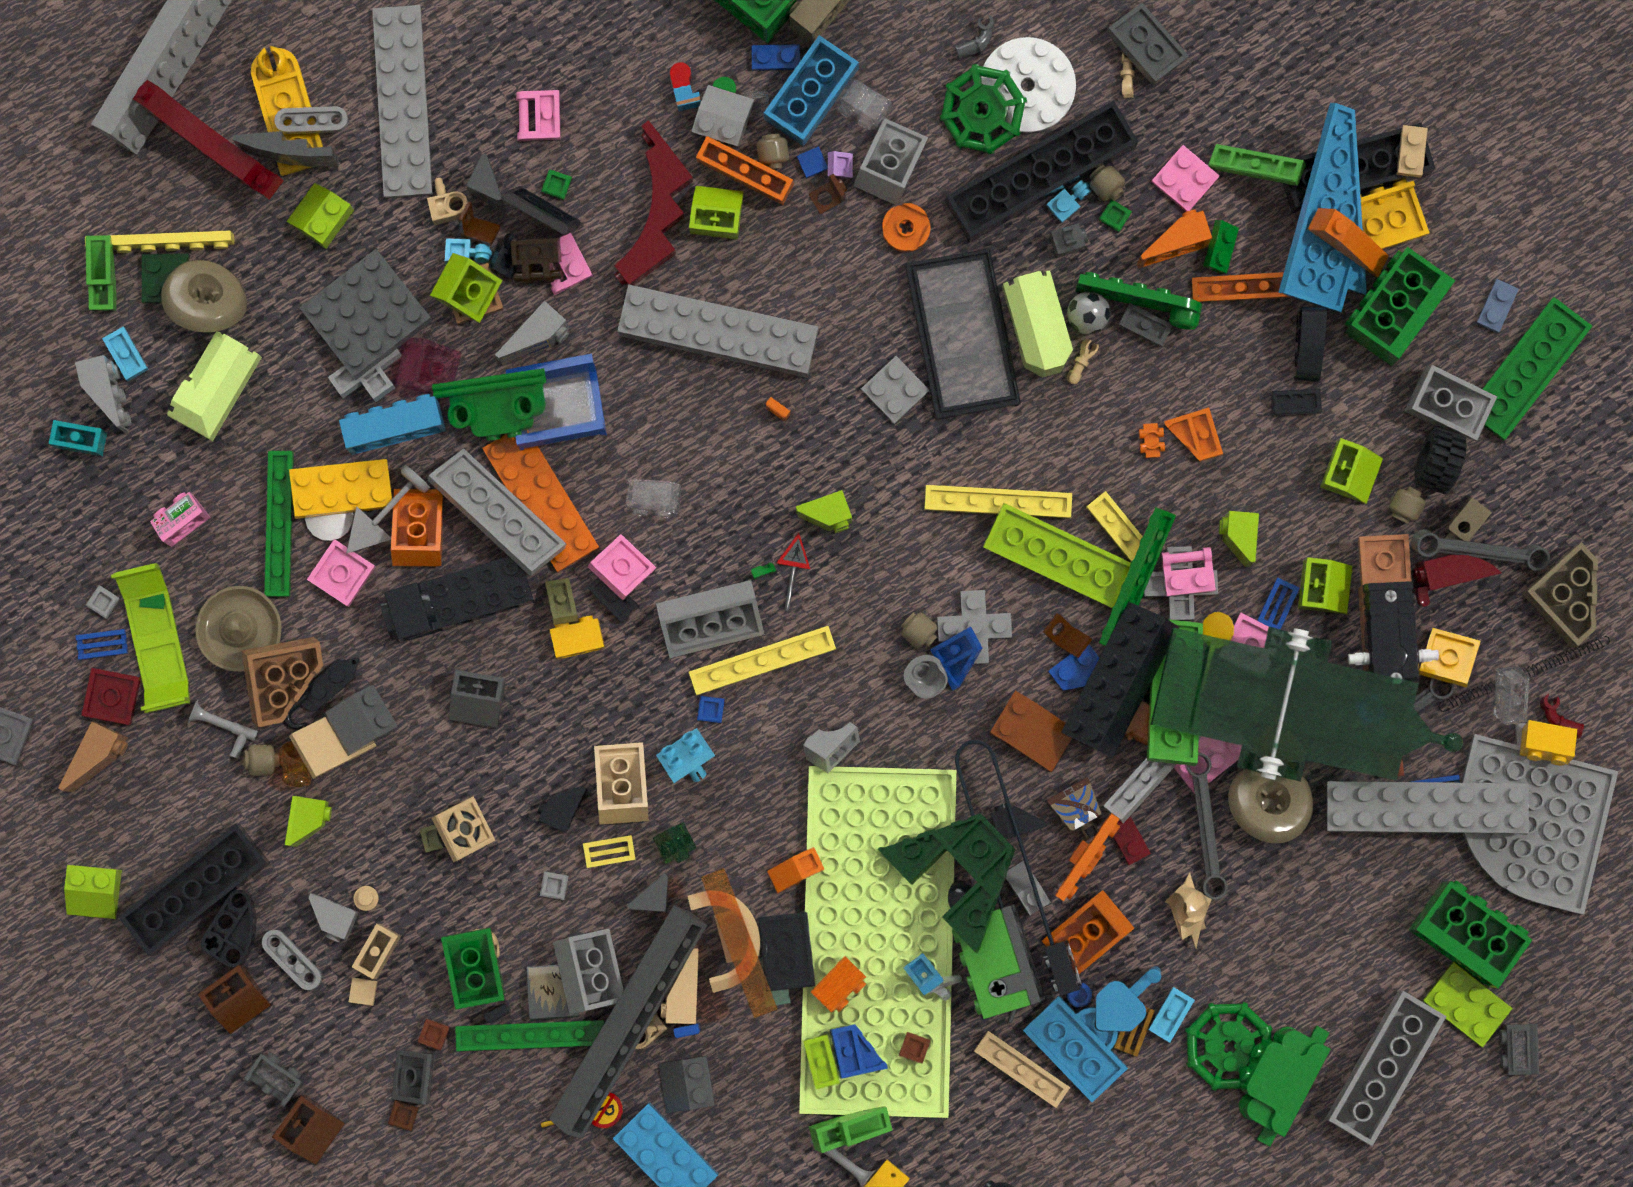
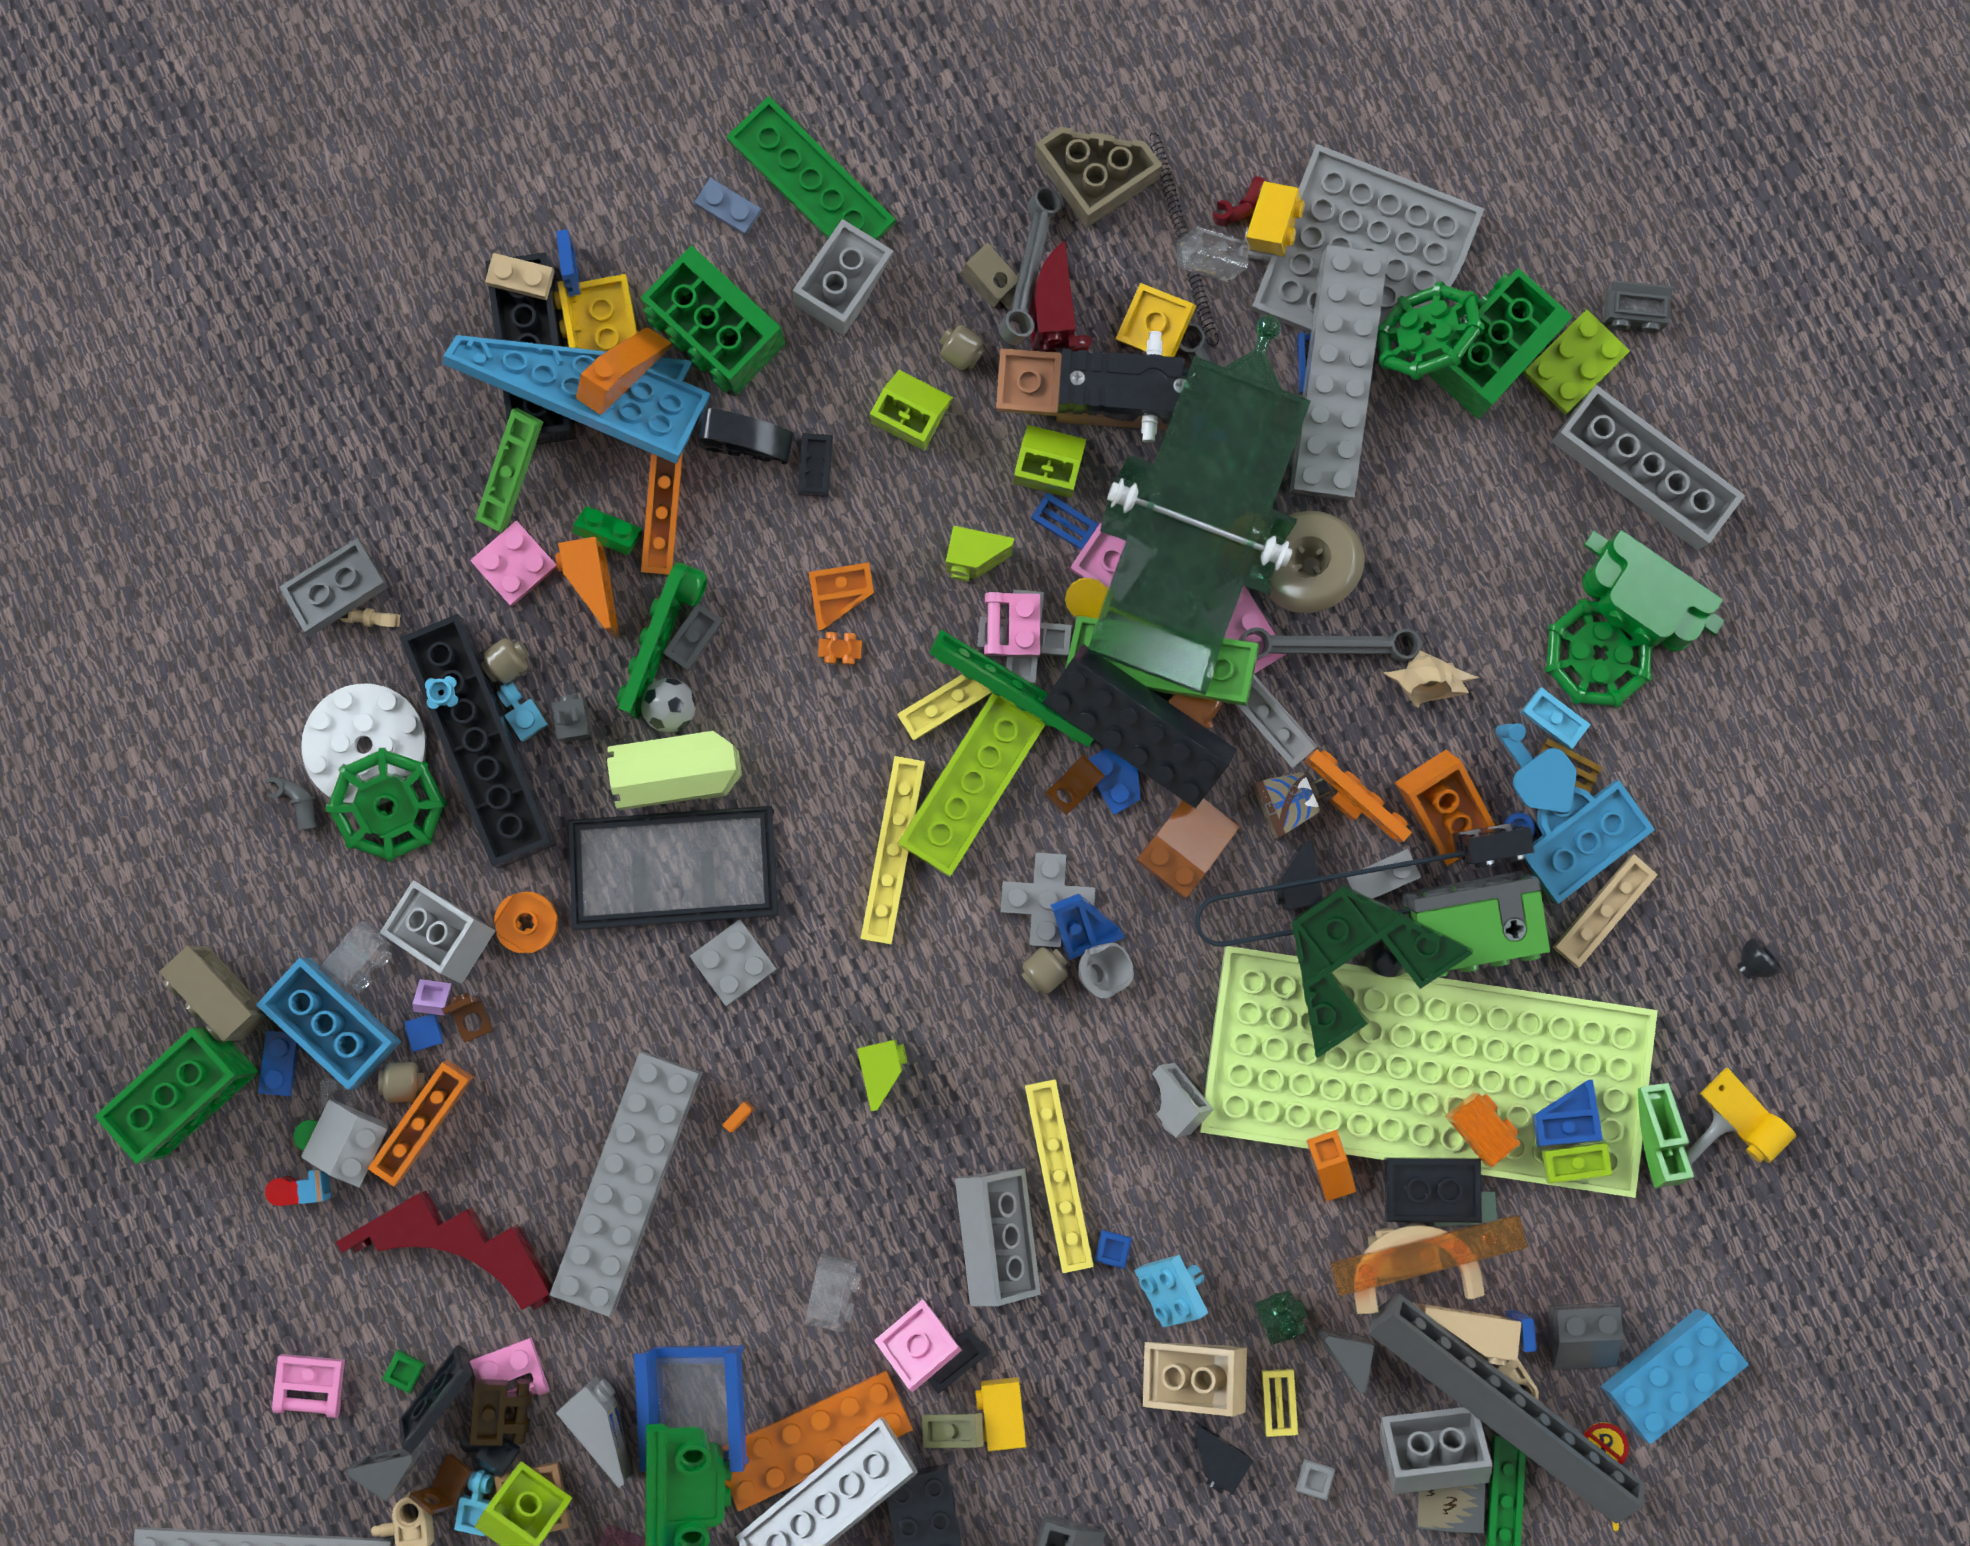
camera: 90 degrees left, 0 degrees up
(716, 212) = (470, 1166): lime slope -> none
(762, 571) = (944, 1160): green tile -> none
(794, 557) = (931, 1116): piece -> none
(914, 1047) = (1570, 1042): copper plate -> none
(928, 978) = (1488, 1017): dark azure piece -> none
(1074, 375) = (744, 733): tan piece -> none
(1079, 132) = (433, 687): none -> medium azure plate
(1115, 215) = (548, 656): green tile -> none
(1130, 842) = (1339, 739): dark red plate -> none
(1431, 187) = (568, 262): none -> blue tile
(1440, 460) = (913, 297): black tyre -> none
(1453, 875) = (1433, 350): none -> green plate

